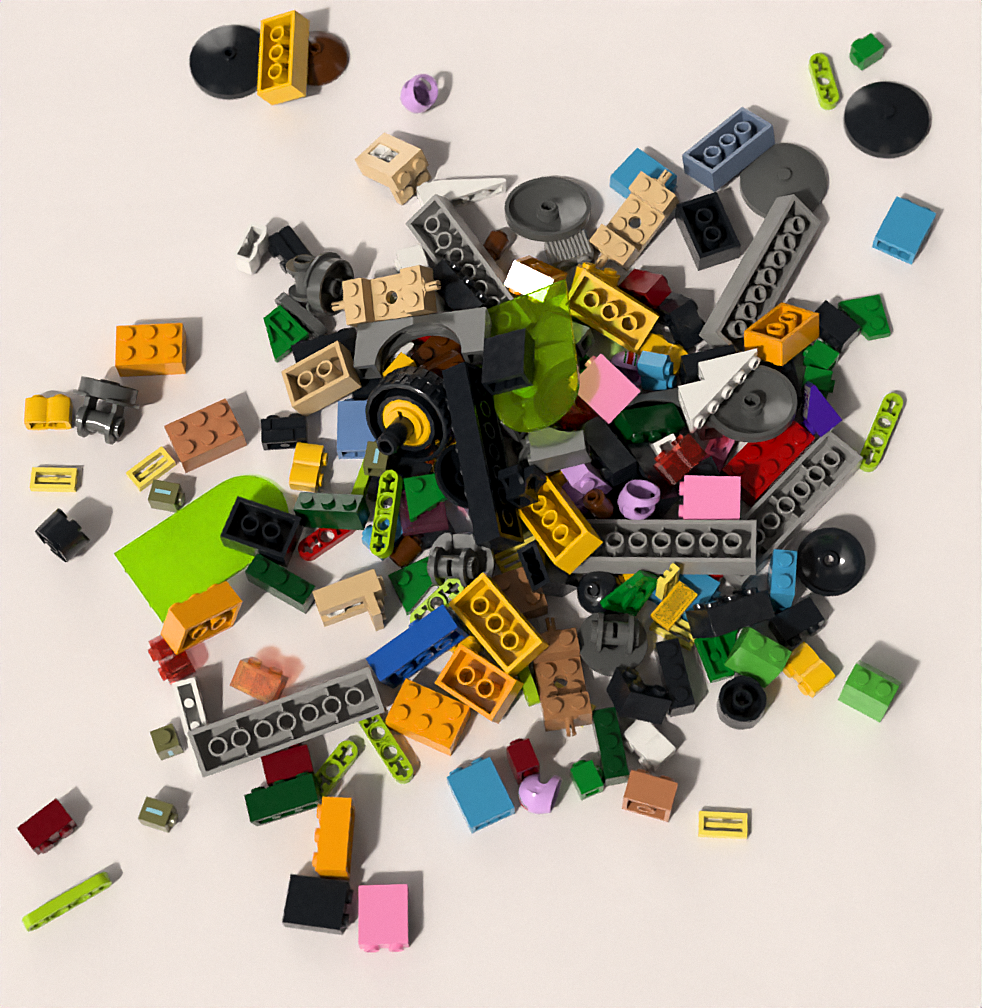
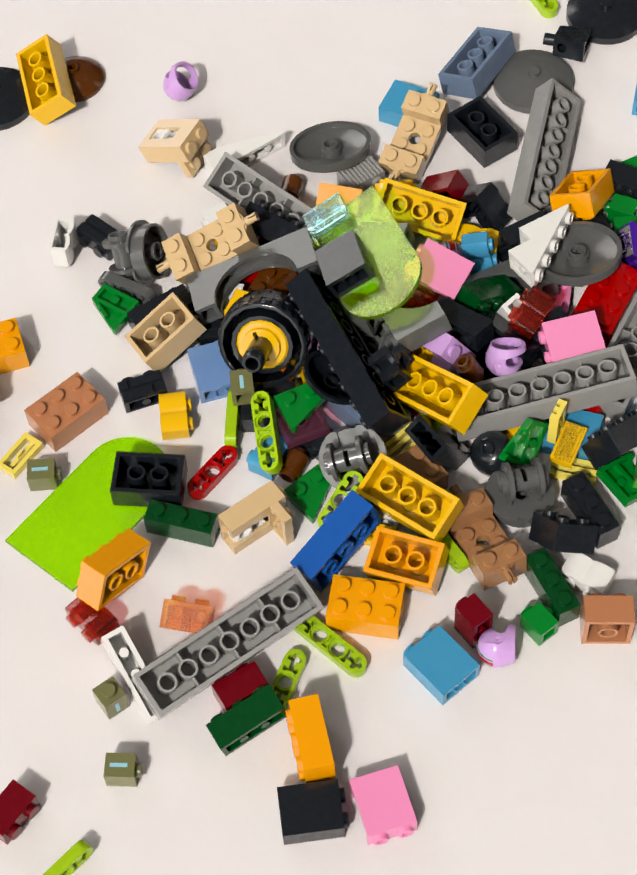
camera: 15 degrees left, 10 degrees down
(332, 510) = (213, 443): dark green brick -> none
(510, 298) = (326, 215): none -> clear light blue plate
(834, 148) = (569, 42): none -> black torso

